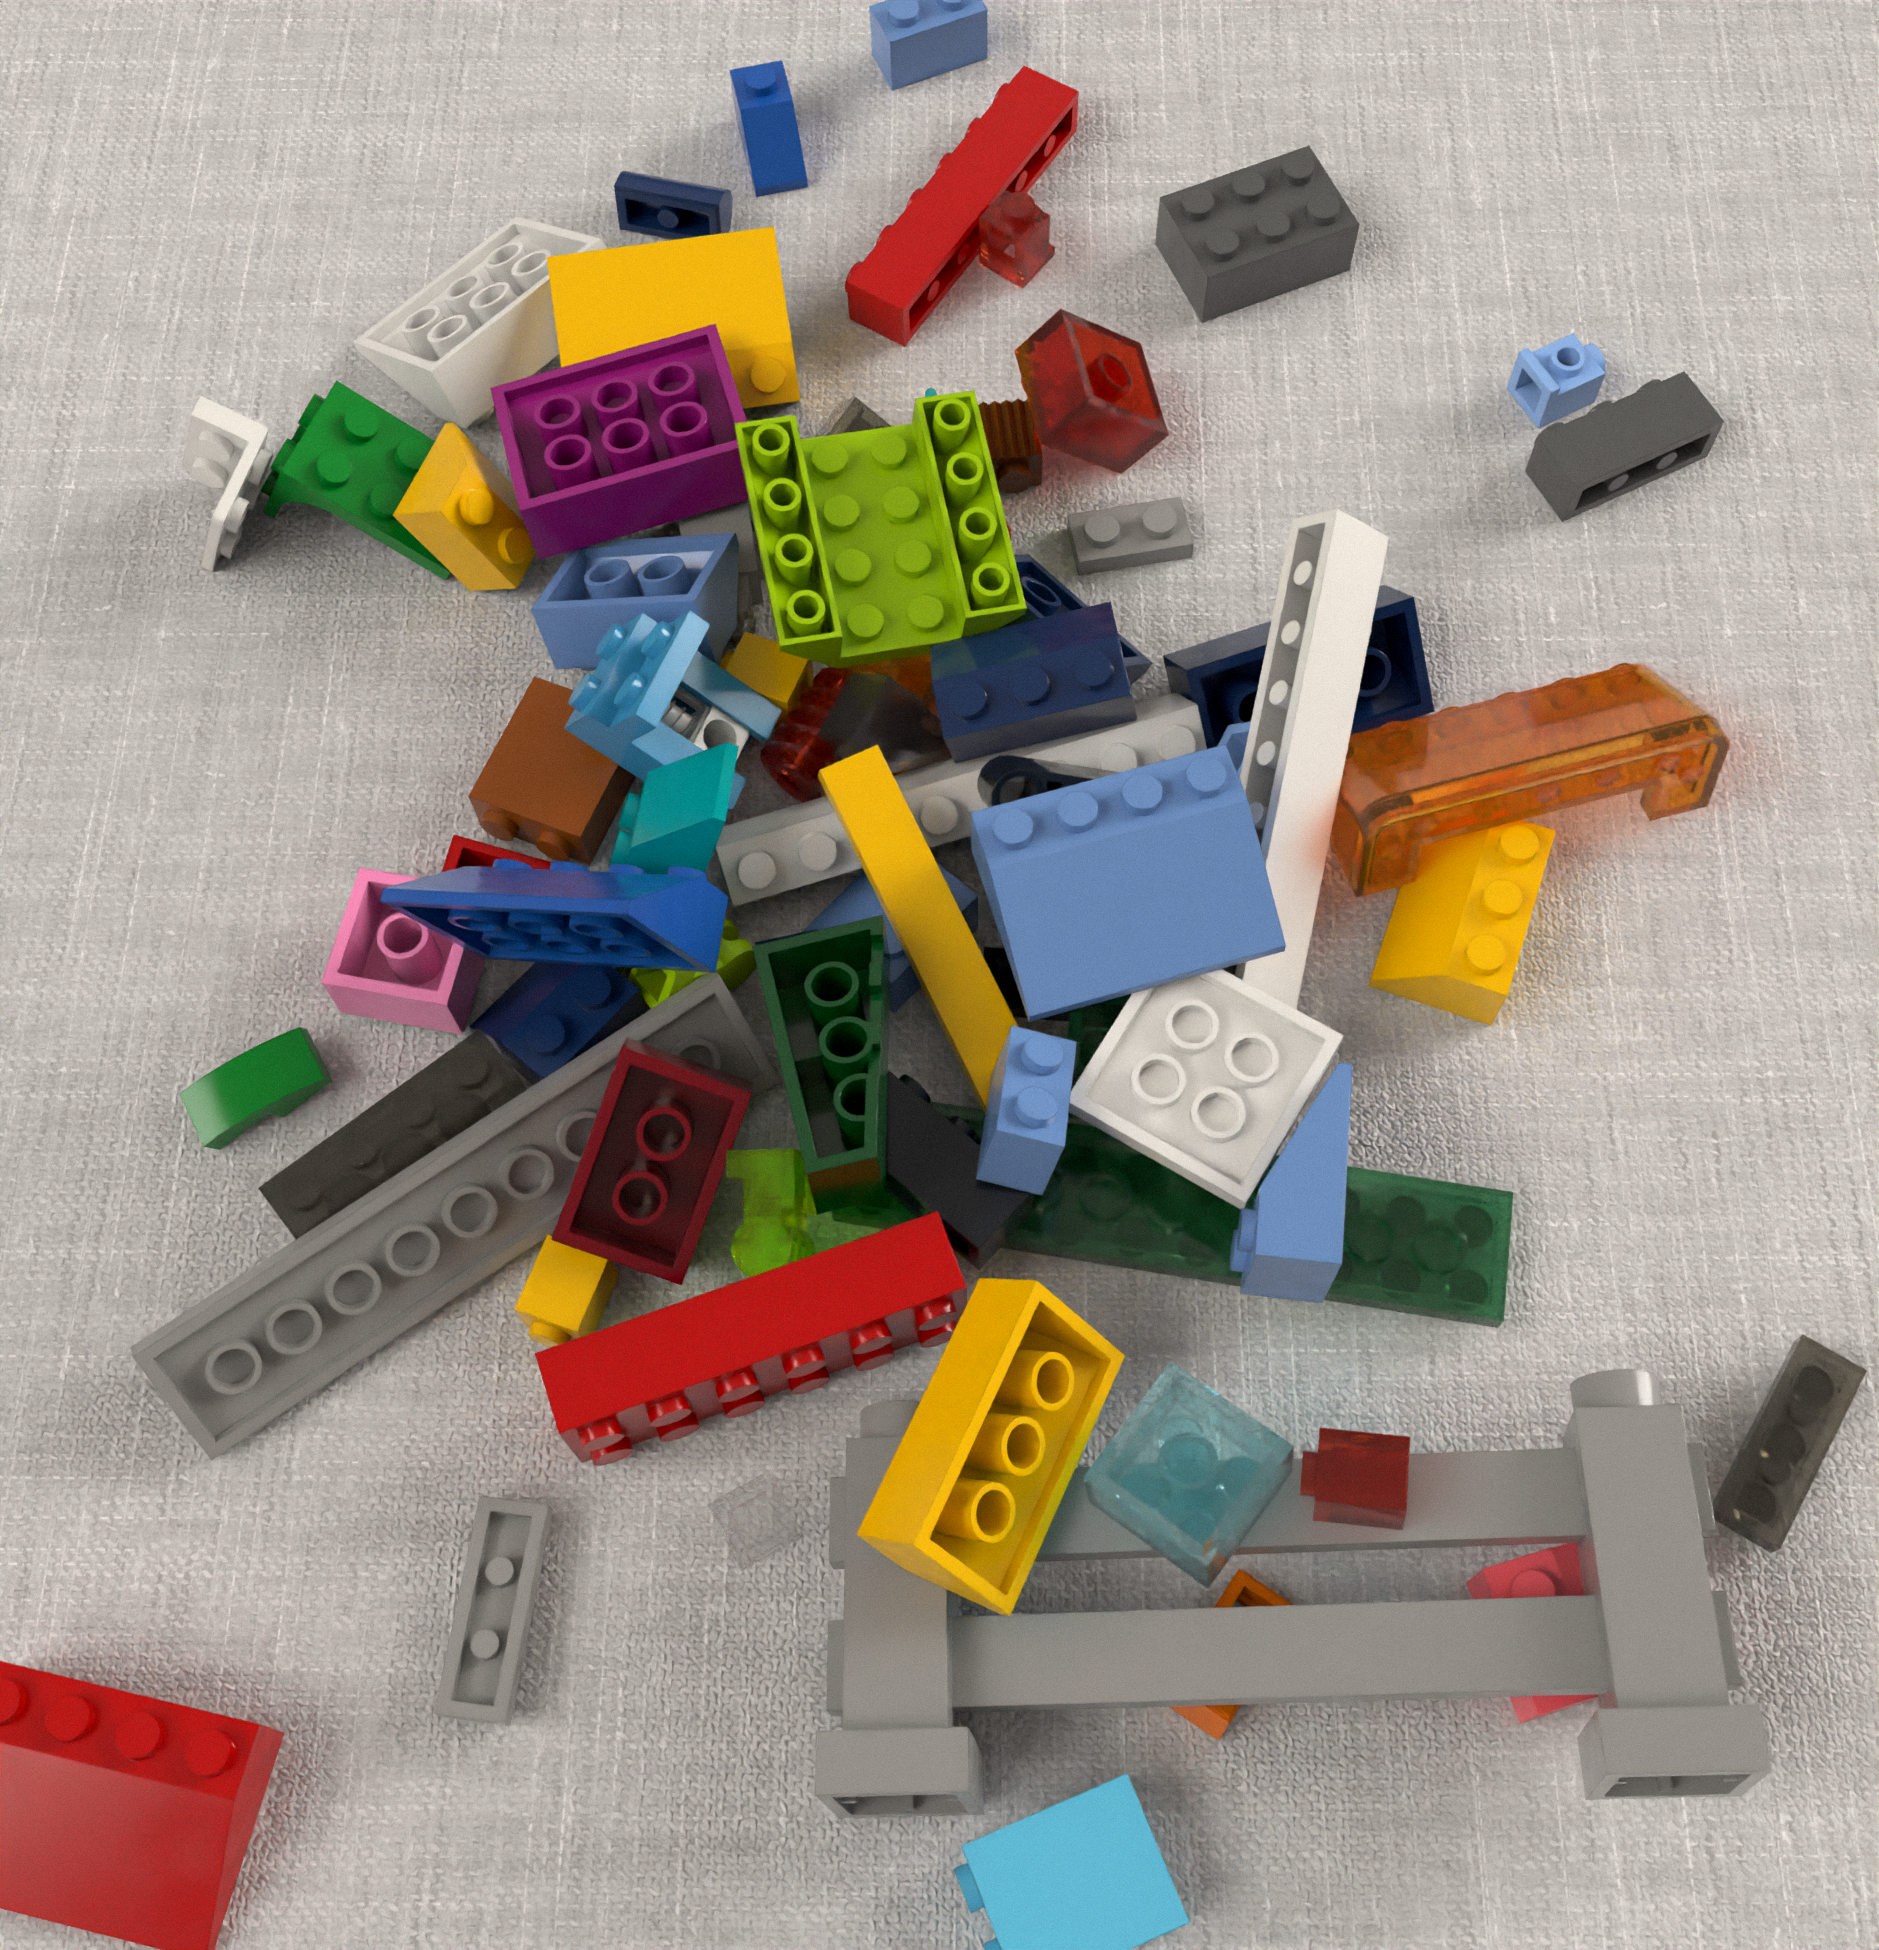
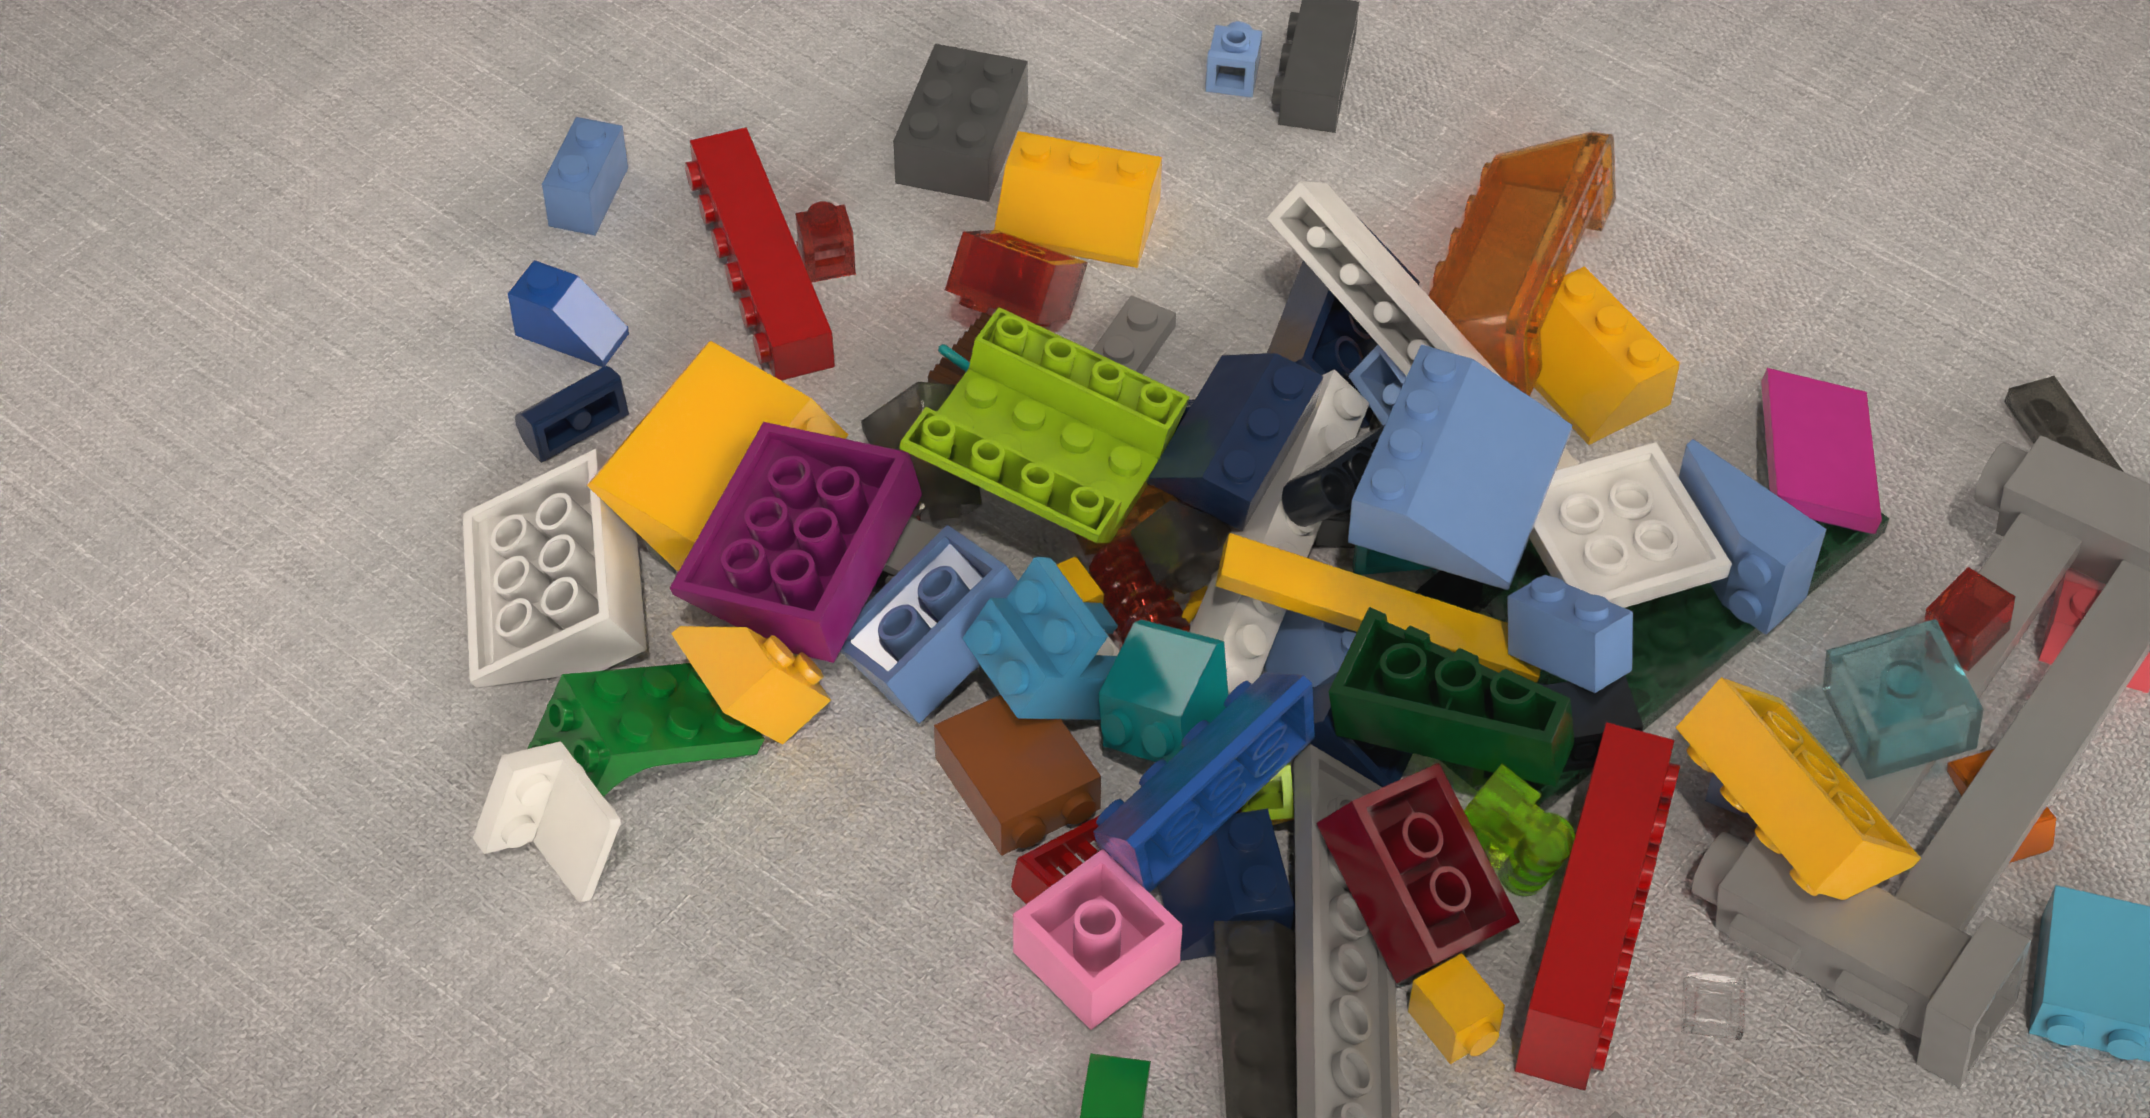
camera: 55 degrees left, 15 degrees down
(1253, 380) = (1080, 198): none -> yellow slope
(1528, 1199) = (1821, 450): none -> dark pink tile

